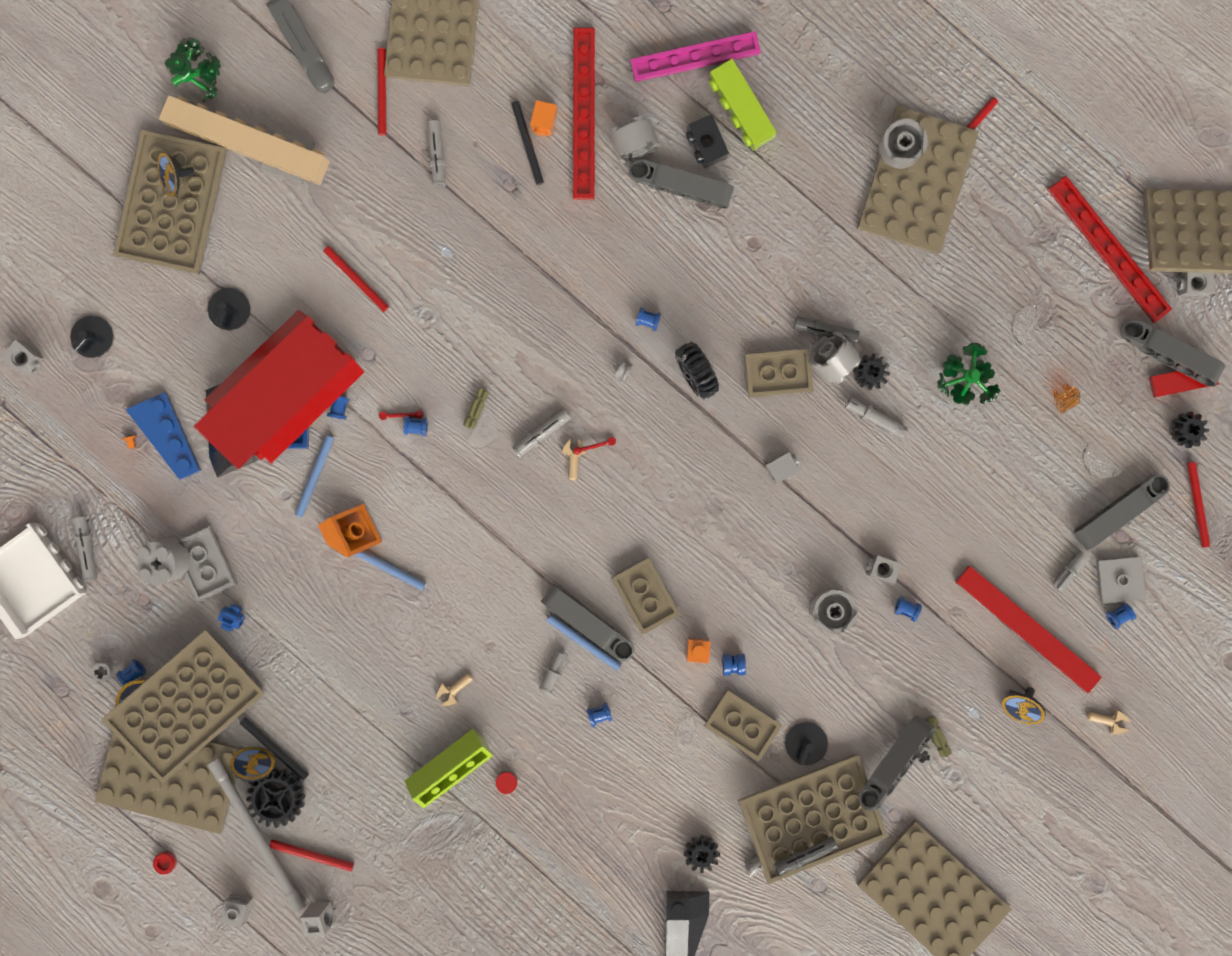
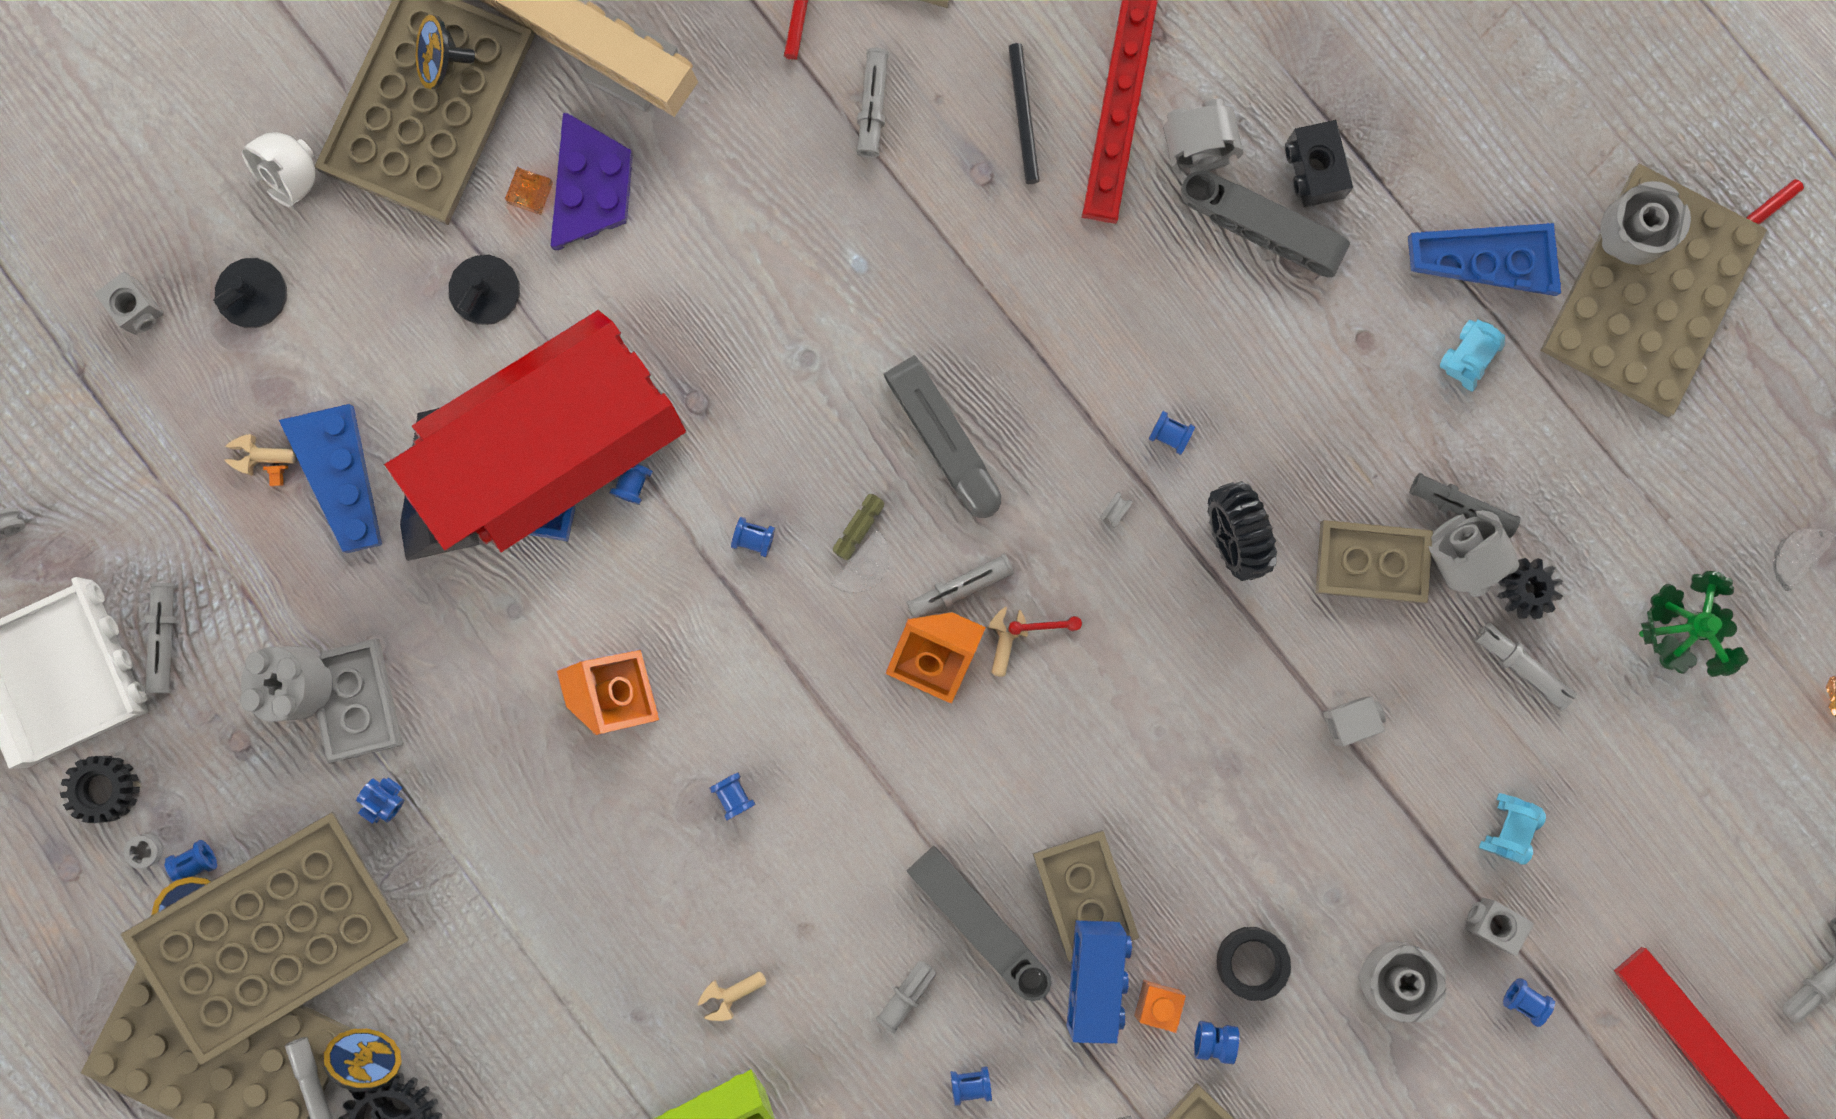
camera: 10 degrees right, 5 degrees down
(57, 645) = (79, 783): none -> black tyre
(94, 257) = (282, 164): none -> white cylinder
(128, 430) = (257, 455): none -> tan bar
(243, 245) = (528, 191): none -> clear orange tile
(272, 747) = (405, 1039): black bar -> none
(278, 234) = (589, 183): none -> dark purple wing
(314, 476) = (567, 589): medium blue bar -> none
(356, 278) = (702, 279): red bar -> none
(383, 415) = (702, 511): red hinge -> none
(391, 569) = (665, 770): medium blue bar -> none
(432, 577) = (732, 796): none -> blue bush
(516, 347) = (944, 437): none -> dark grey piece
(534, 473) = (936, 653): none -> orange slope
(543, 118) = (1058, 78): orange brick -> none
(584, 642) = (967, 956): medium blue bar -> none
(660, 643) = (1098, 982): none -> blue brick
(695, 56) = (1321, 26): dark pink plate -> none
(742, 105) = (1386, 115): lime brick -> none
(763, 616) = (1275, 982): none -> black tyre
(817, 238) = (1474, 354): none -> medium azure piece
(822, 177) = (1496, 256): none -> blue wing
(885, 512) = (1517, 830): none -> medium azure piece

